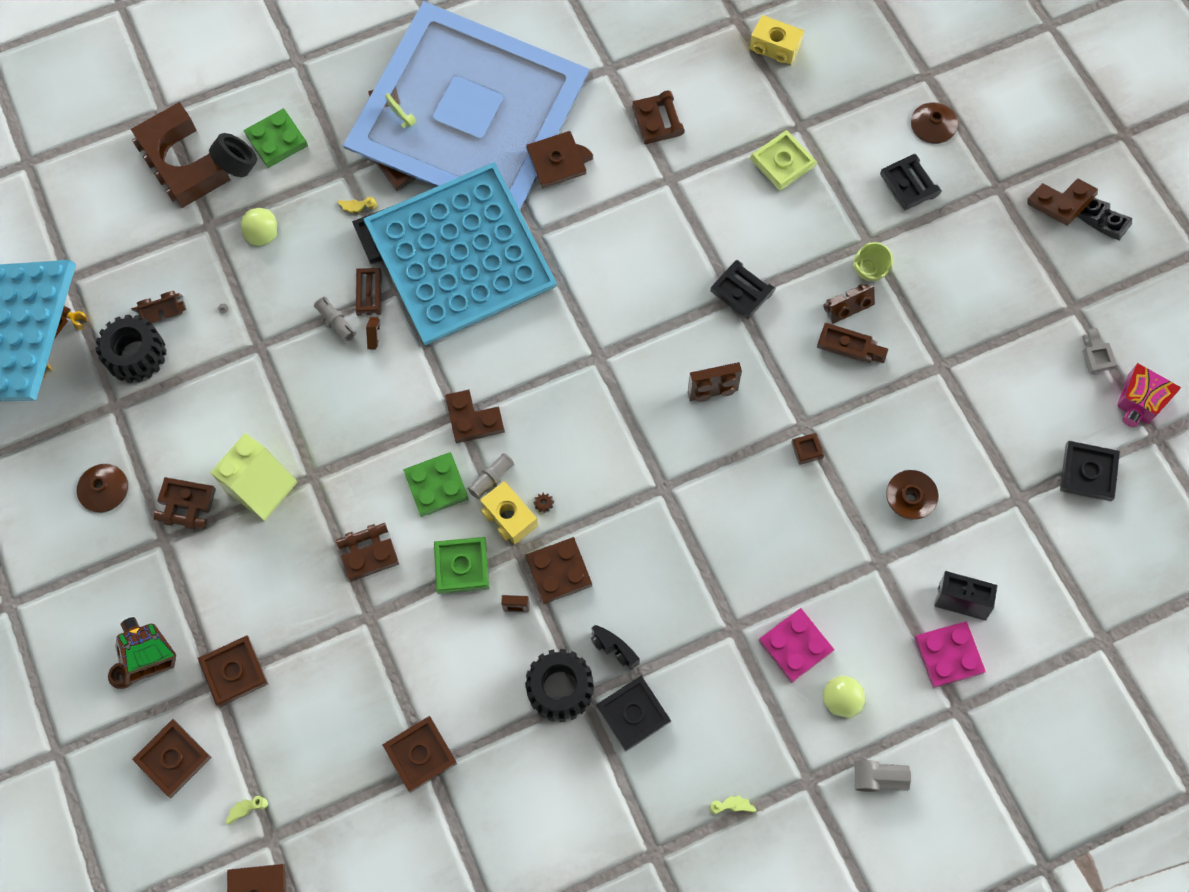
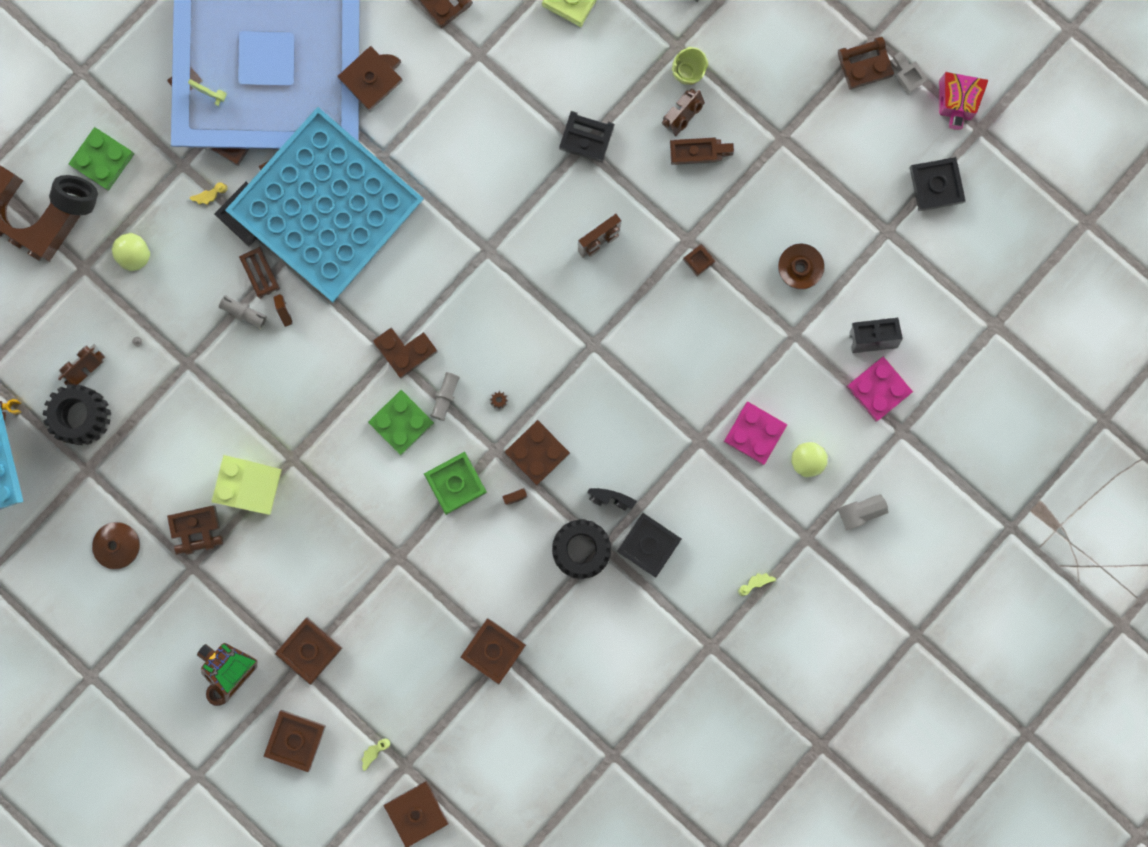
camera: 30 degrees left, 15 degrees up
(369, 559) = (375, 510): reddish brown plate -> none
(504, 499) = (464, 413): light yellow brick -> none
(1056, 335) = (867, 70): none -> reddish brown plate

